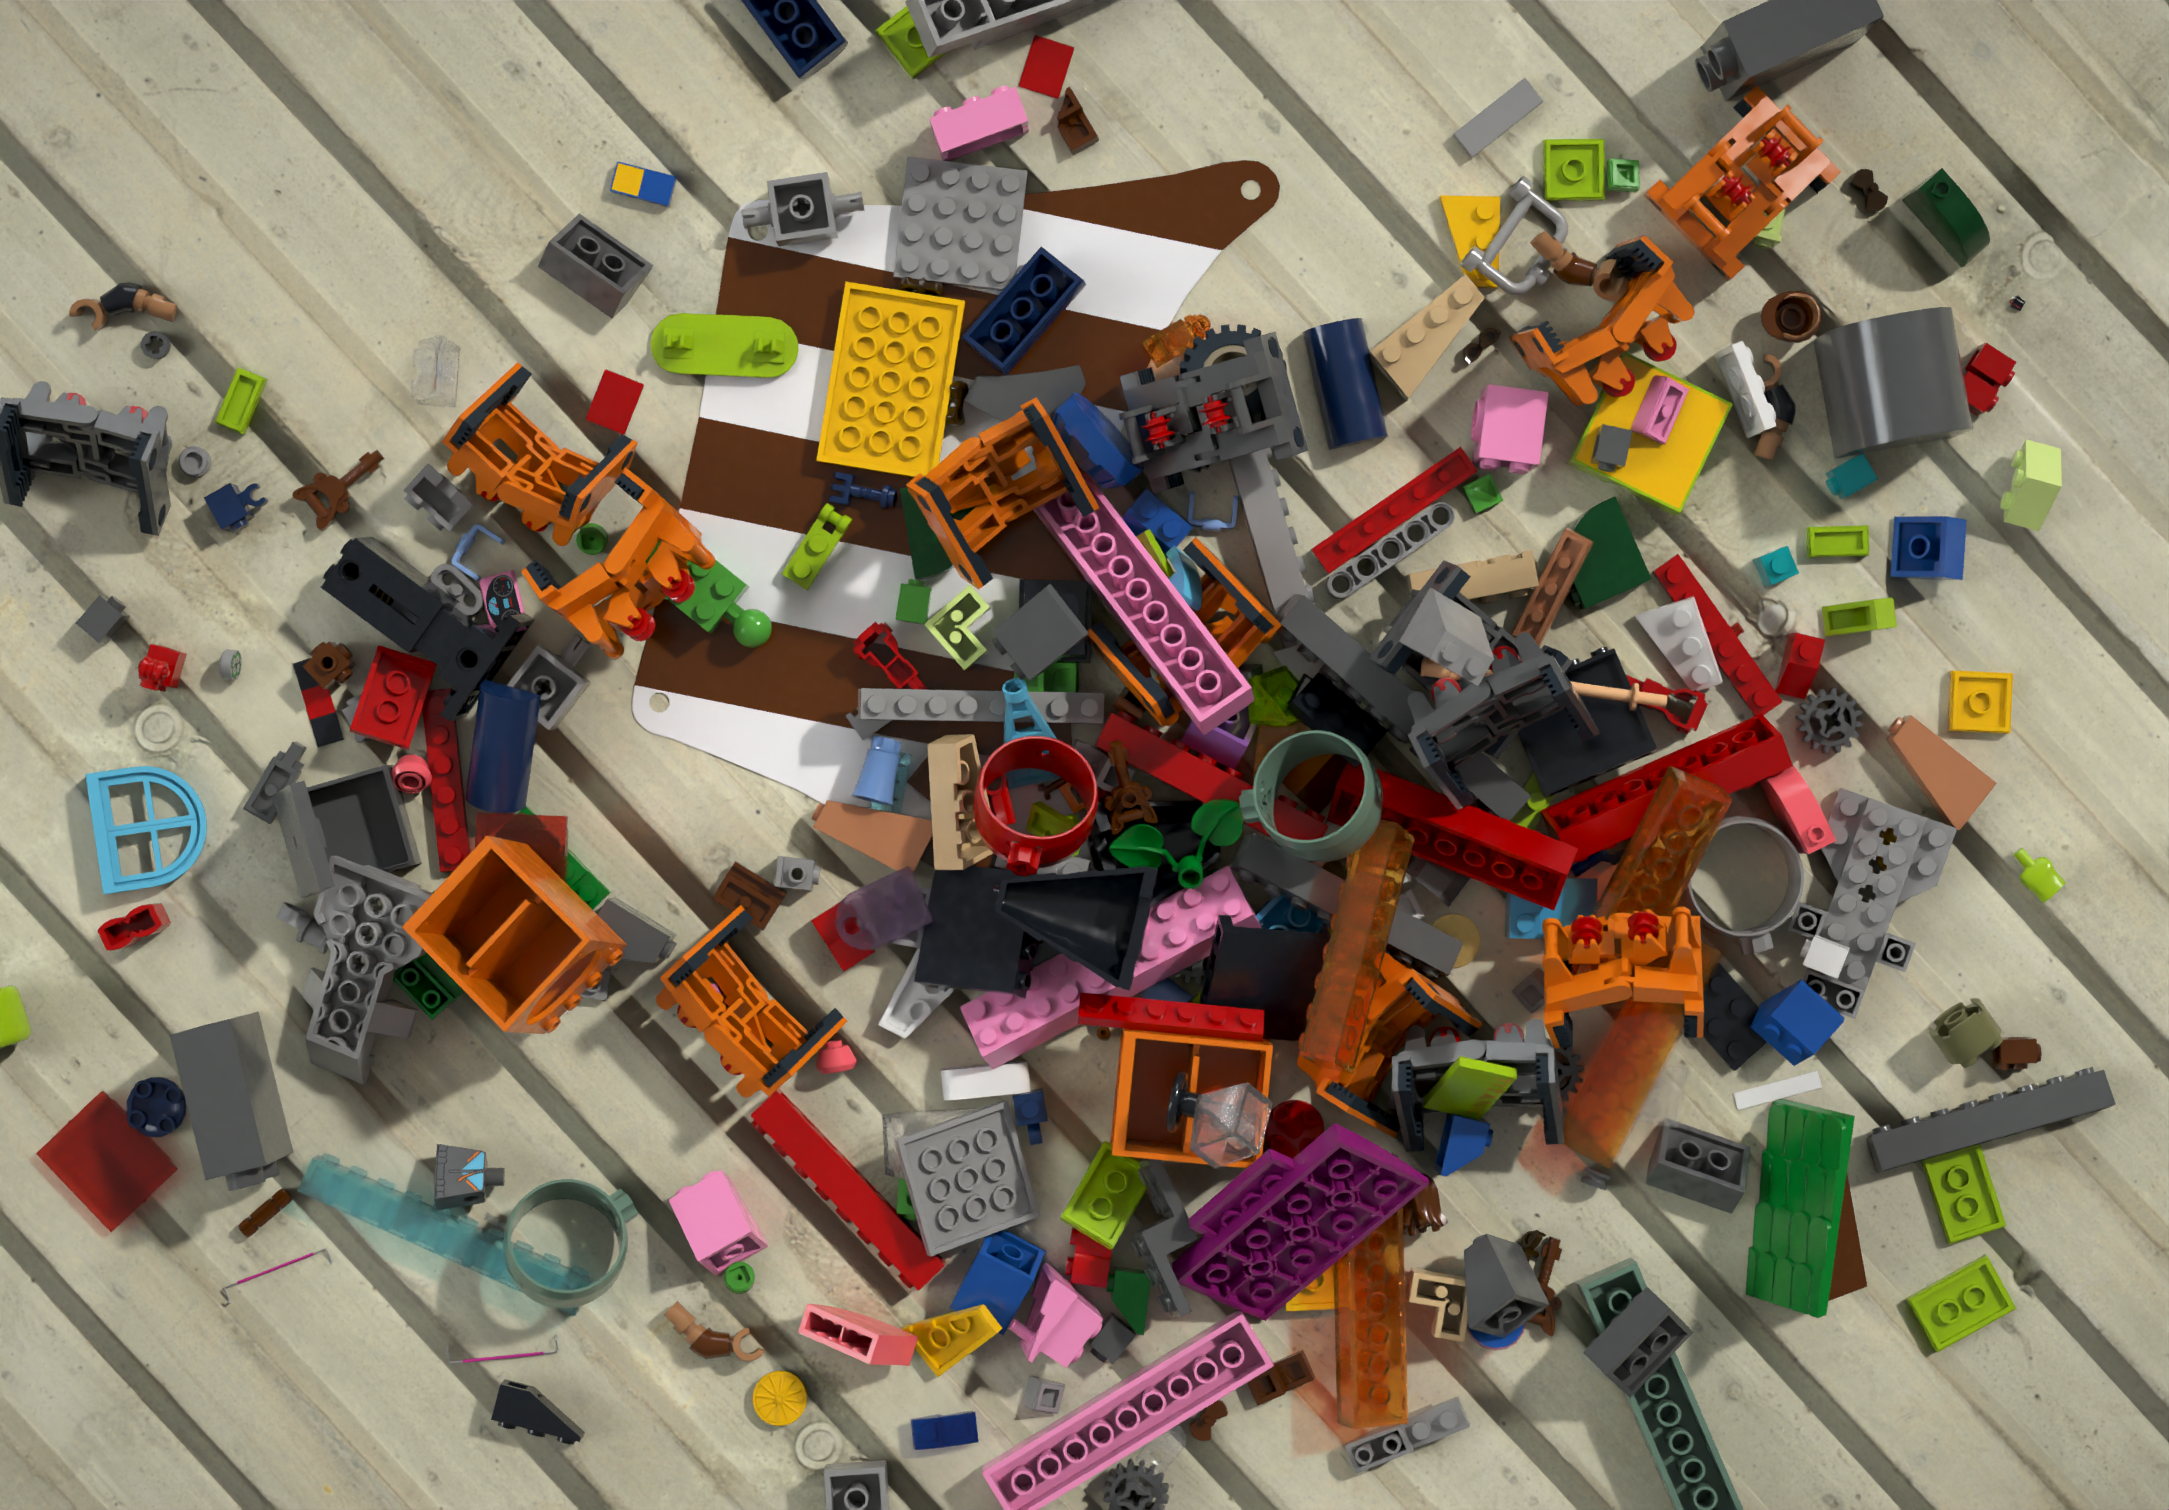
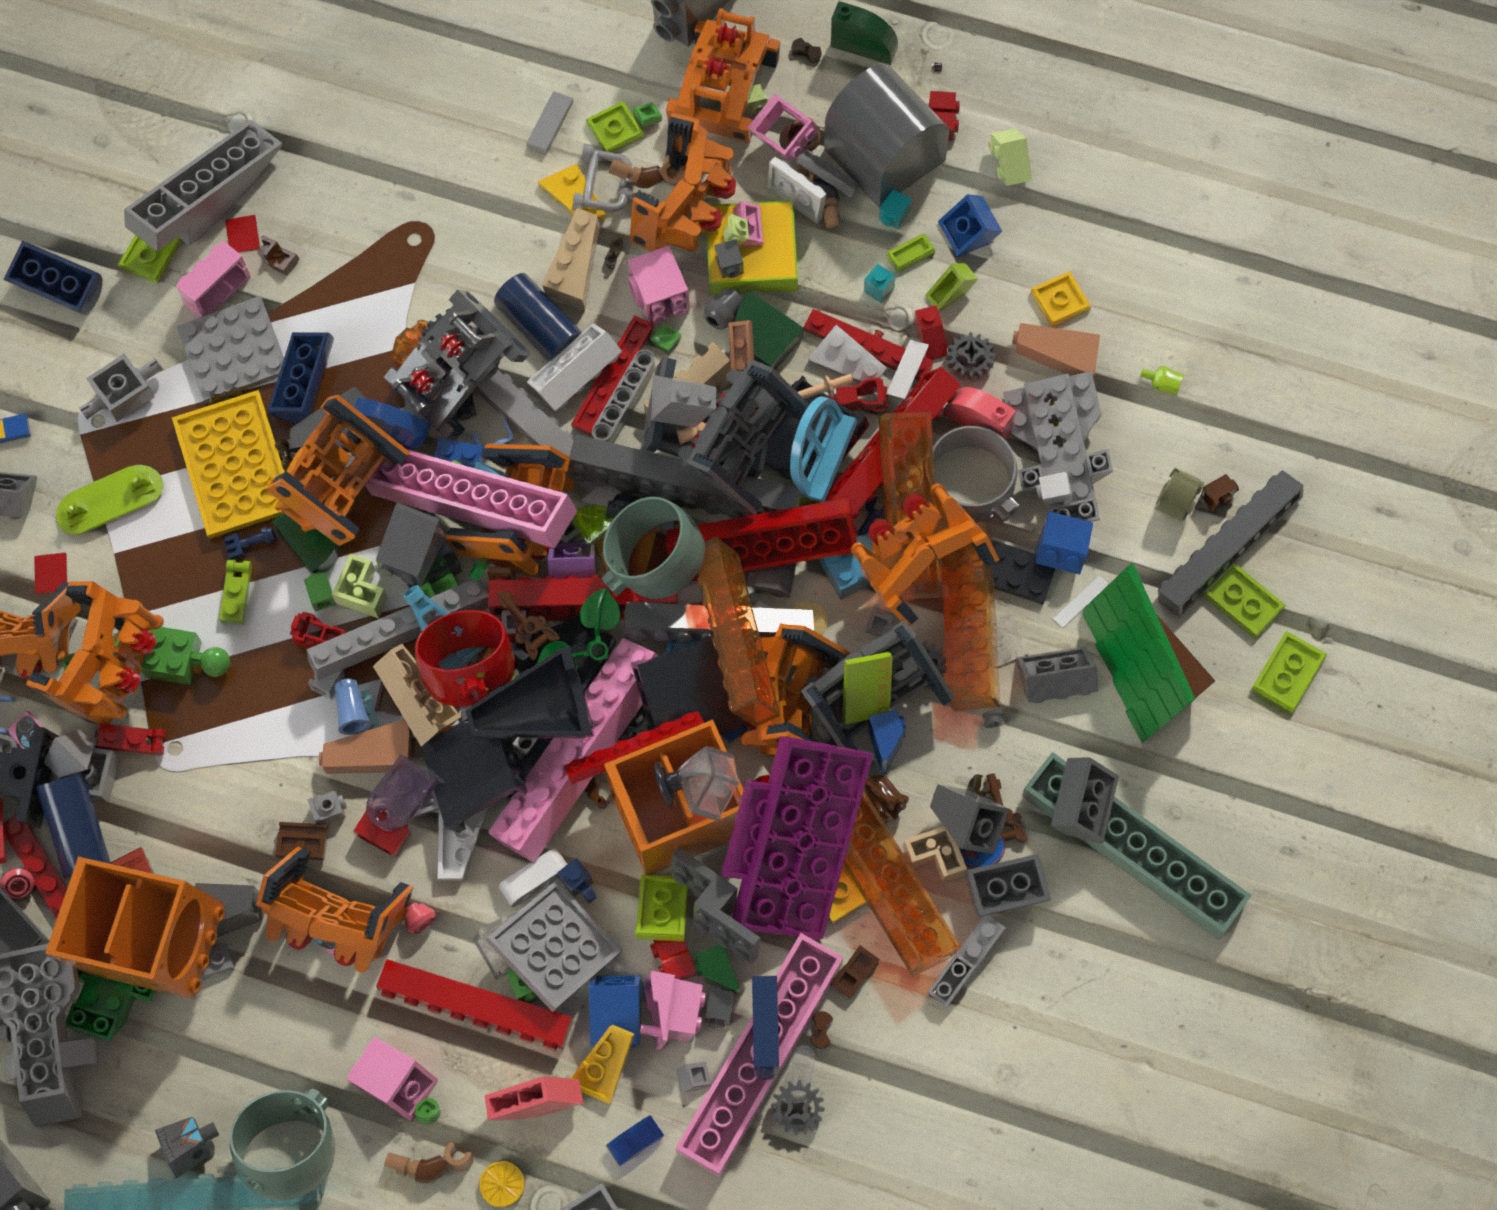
camera: 25 degrees left, 20 degrees down
(537, 667) = (69, 753): none -> light grey slope
(612, 672) = (130, 739): none -> red plate
(1107, 689) = (478, 569): none -> green tile
(1145, 1407) = (765, 1027): none -> dark blue window
(1352, 478) = (574, 367): none -> white slope
(1498, 1383) = (1007, 885): none -> dark grey slope
(1568, 499) = (722, 308): none -> dark grey piece
(1582, 769) = (828, 453): none -> medium azure window
(1639, 417) = (736, 230): none -> yellowish green bracket
(1744, 699) = (907, 369): none -> white sticker
(1766, 273) = (768, 117): none -> bright pink window
(1797, 384) = (827, 172): none -> light grey tile

